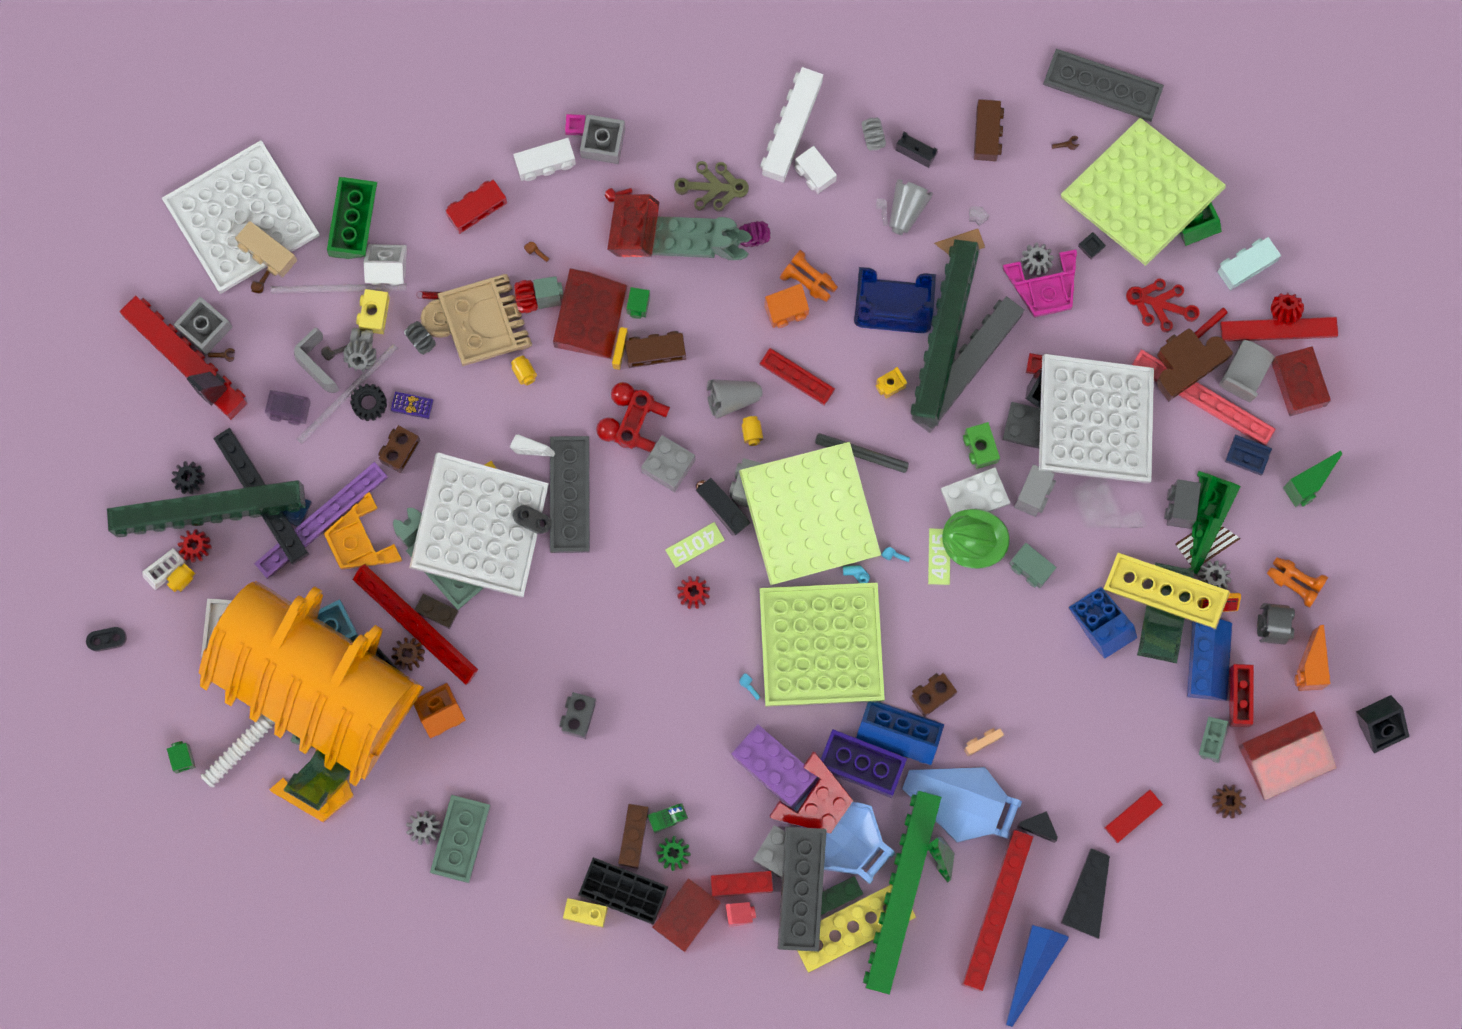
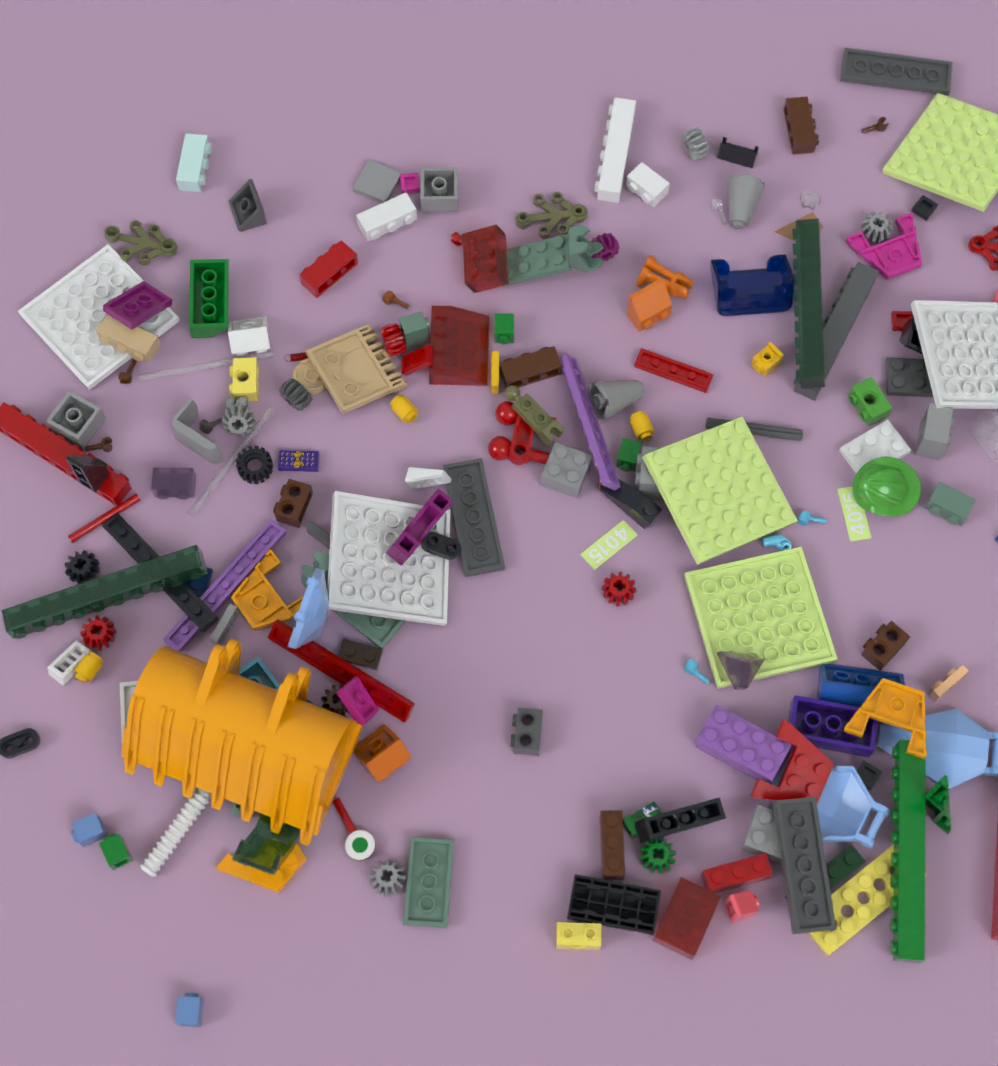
camera: 10 degrees left, 10 degrees down
(159, 733) = (88, 830): none -> medium blue brick
(216, 430) = (104, 518): none -> red bar
(225, 913) = (189, 1010): none -> medium blue brick
(279, 217) = (137, 305): none -> magenta plate
(296, 144) = (164, 246): none -> olive plant
(314, 560) = (225, 625): none -> light grey tile
(360, 63) = (193, 162): none -> light aqua brick
(394, 571) = (312, 611): none -> light blue windscreen
(403, 791) = (359, 844): none -> piece
(406, 123) = (247, 207): none -> dark grey slope
(415, 481) = (318, 533): none -> dark grey tile
(424, 659) = (357, 701): none -> dark pink tile
(512, 500) = (419, 527): none -> magenta arch
(542, 116) = (377, 181): none -> light grey tile
(545, 322) = (417, 360): none -> red tile
(646, 402) = (534, 415): none -> olive plate
(699, 826) = (679, 820): none -> black brick
(700, 418) = (590, 422): none -> medium lavender plate
(731, 457) = (628, 455): none -> green brick
(788, 692) = (740, 668): none -> slope
(885, 814) = (868, 774): none -> black plate
(922, 759) = (895, 706): none -> light orange wing

